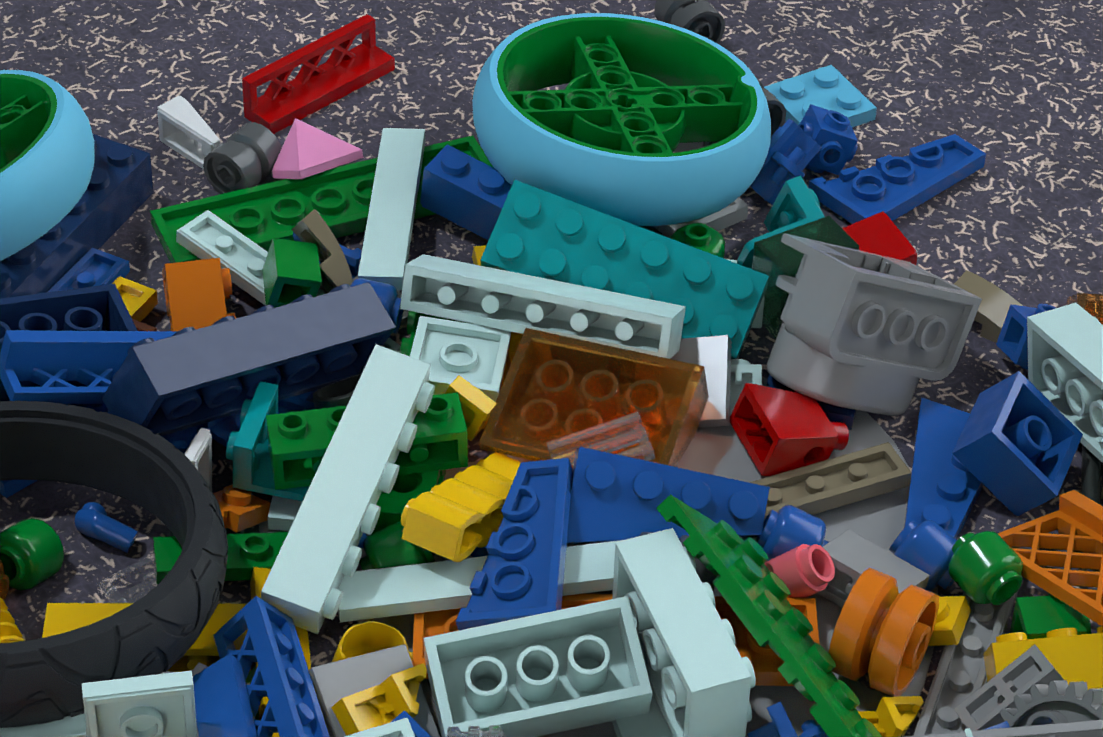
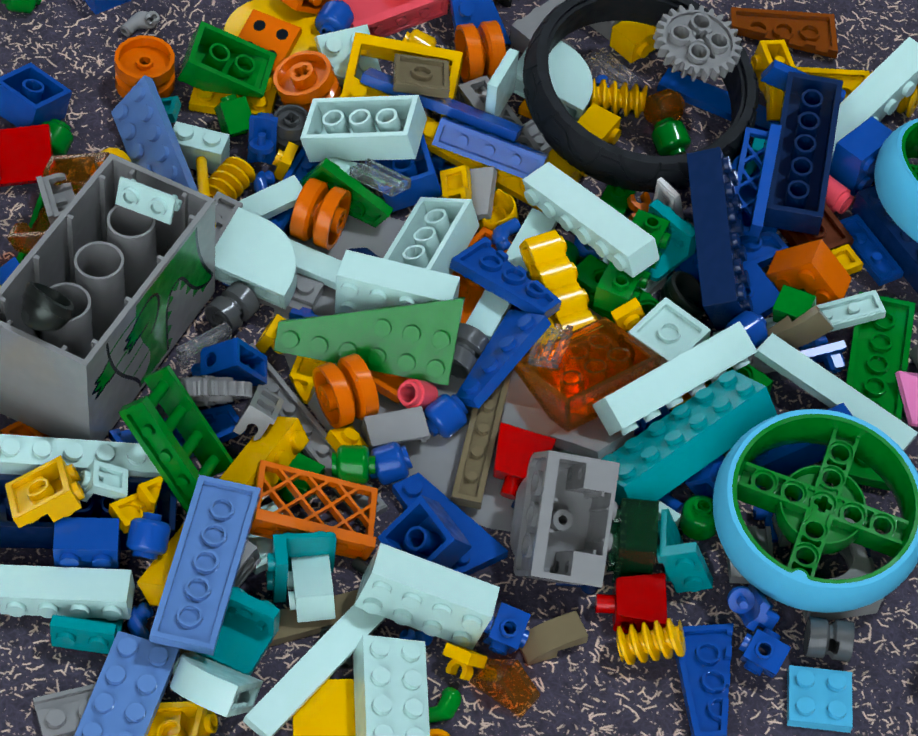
camera: 120 degrees right, 10 degrees up
(422, 622) = (502, 232): none -> blue arm
(918, 217) = (651, 642): none -> yellow piece

